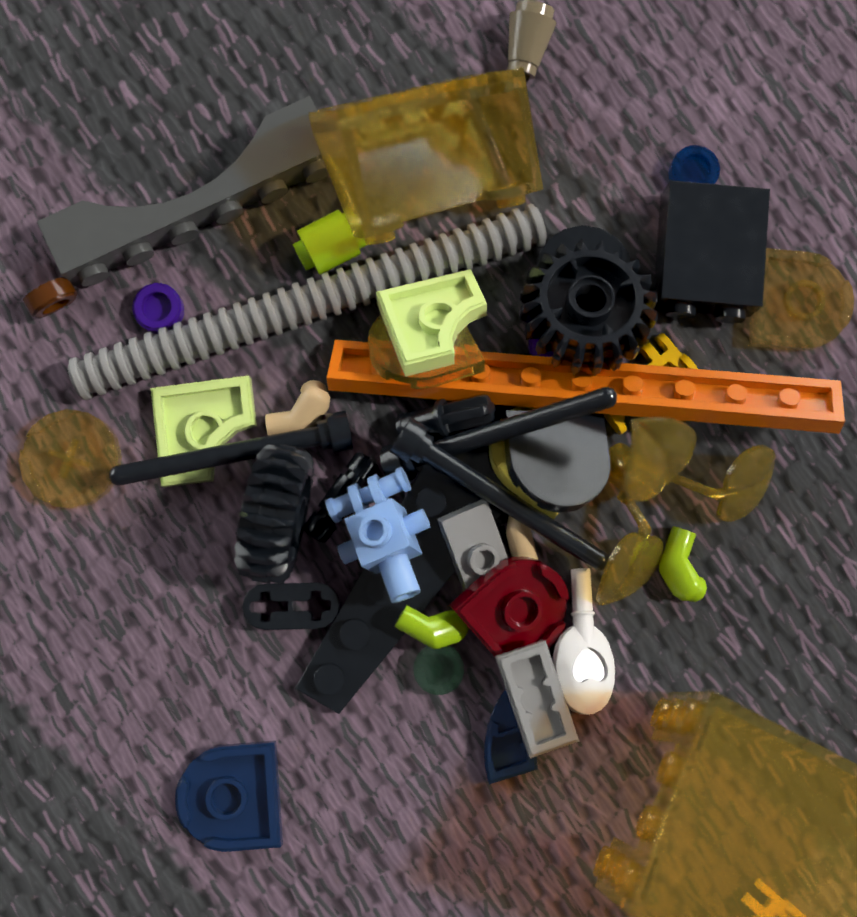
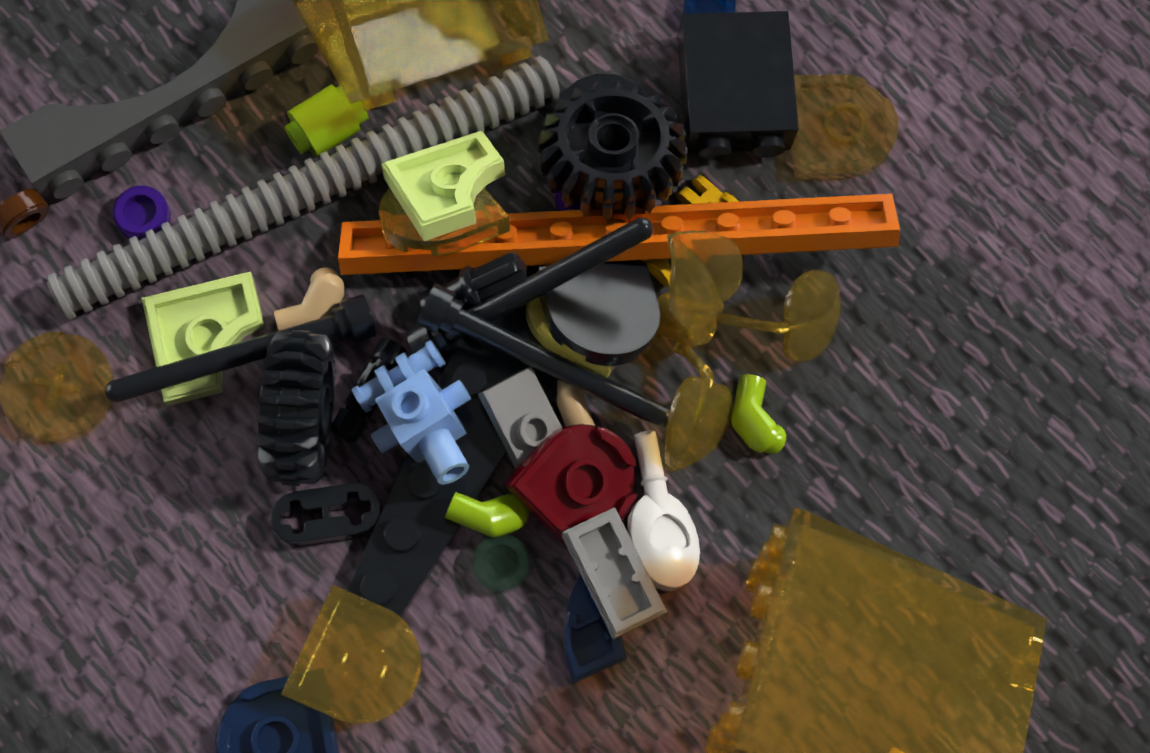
camera: 15 degrees left, 10 degrees down
(302, 745) = (356, 661): none -> clear yellow tile

